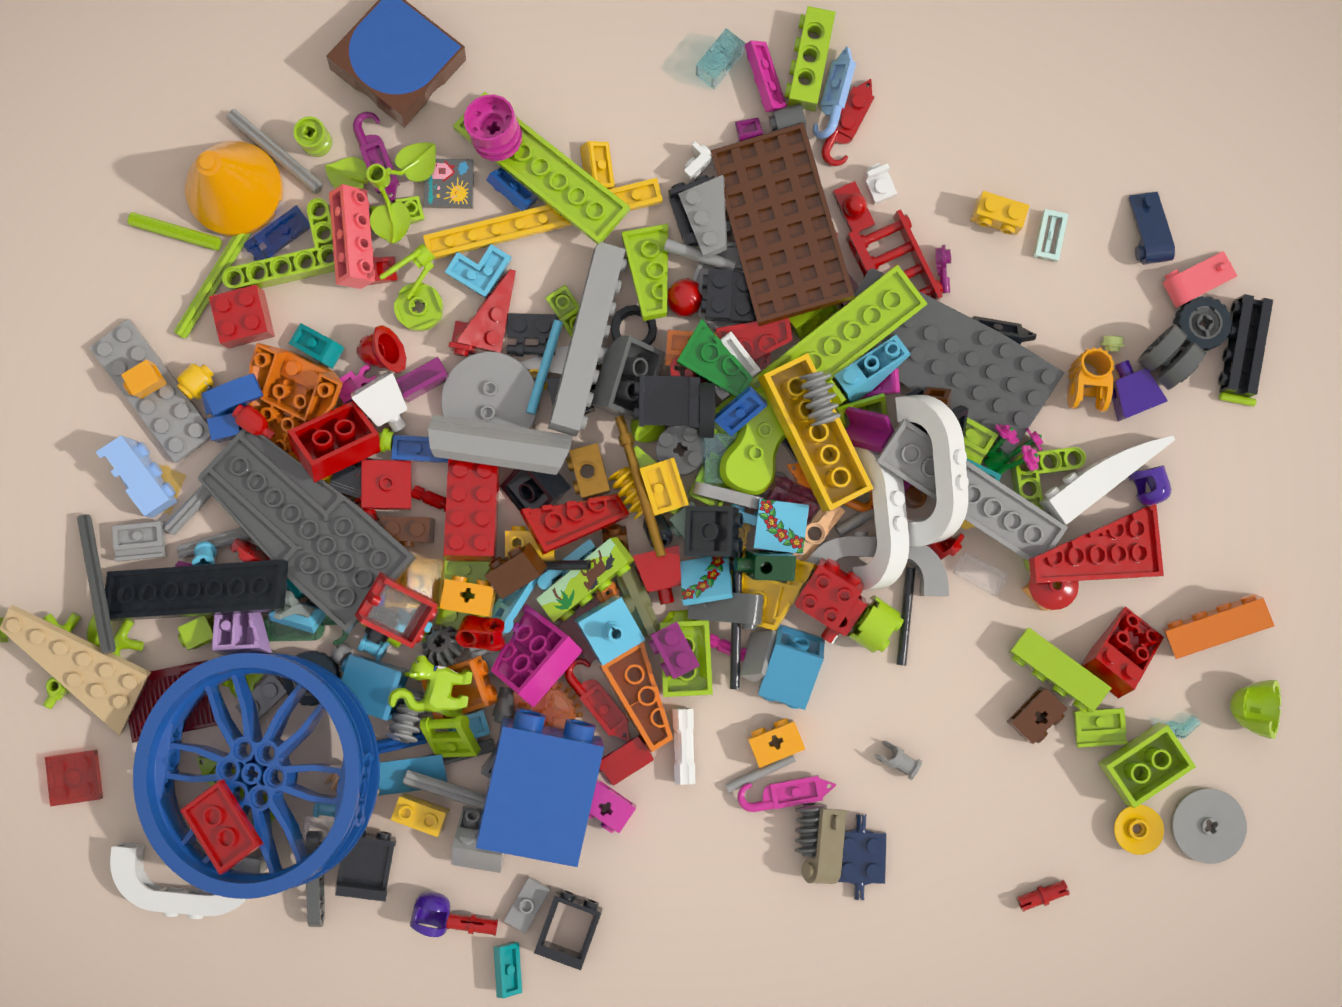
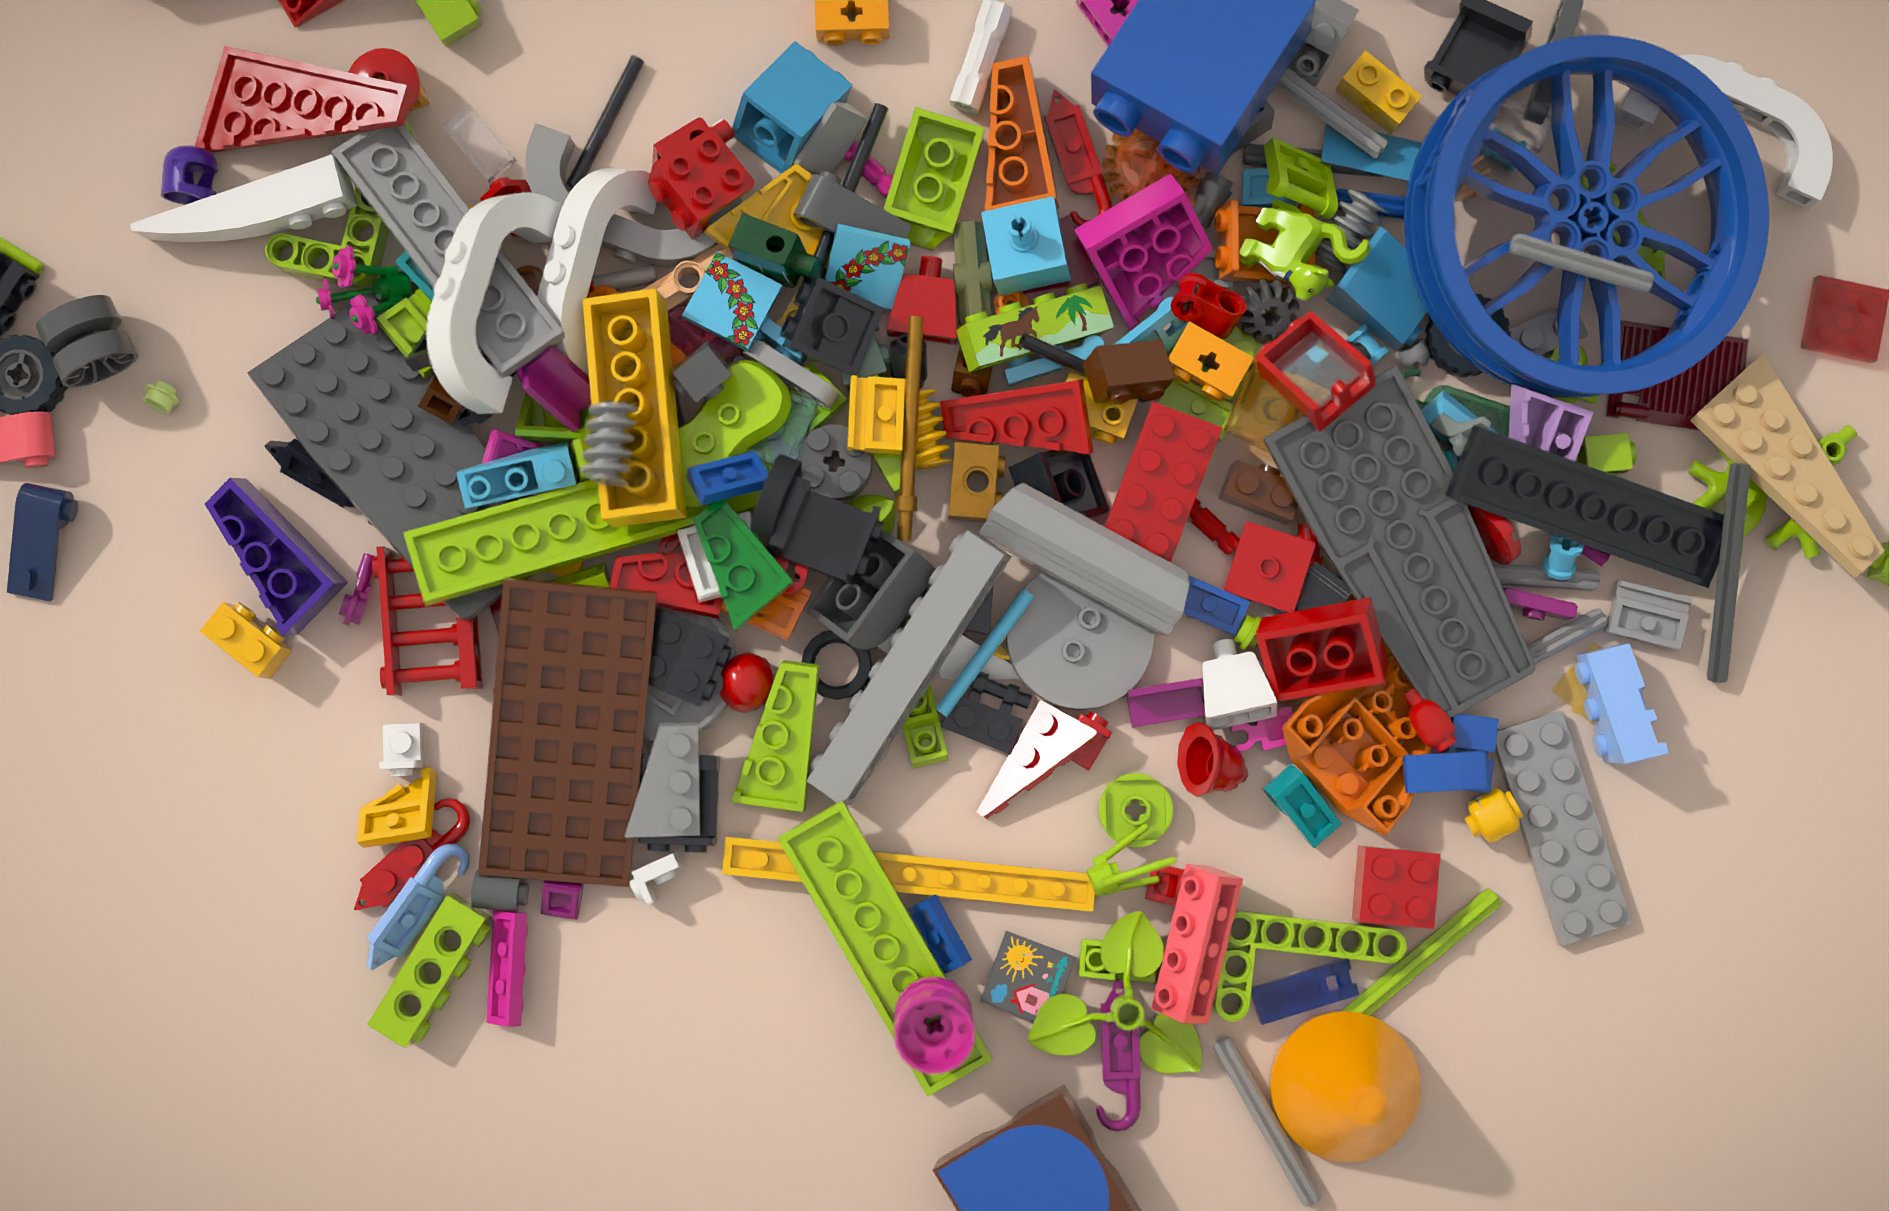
camera: 160 degrees left, 0 degrees up
(143, 379) = (1568, 841): light orange brick -> none
(174, 231) = (1453, 1053): lime axle -> none
(210, 521) = (1539, 606): none -> magenta plate
(221, 827) = (1657, 157): red tile -> none
(248, 738) = (1581, 263): none -> light grey axle
(312, 136) = (1203, 1118): lime wheel -> none
(480, 276) = (1029, 821): medium azure plate -> none
(597, 162) = (800, 929): yellow slope -> none
(625, 760) = (1065, 67): red panel -> none
(674, 651) = (946, 183): magenta bracket -> none
(696, 254) = (706, 735): light grey piece -> none
(720, 58) = (563, 1018): clear light blue brick -> none
(782, 471) = (701, 373): none -> dark grey brick
(853, 207) = (453, 727): red tile -> none
(865, 144) = (400, 814): none -> yellow wing
(876, 625) = (649, 117): lime brick -> none
(1004, 270) = (283, 565): none -> dark purple wedge
(1058, 245) = (198, 592): light aqua tile -> none
(1101, 385) = (230, 352): light orange piece -> none
(1134, 391) = (159, 314): dark purple torso -> none

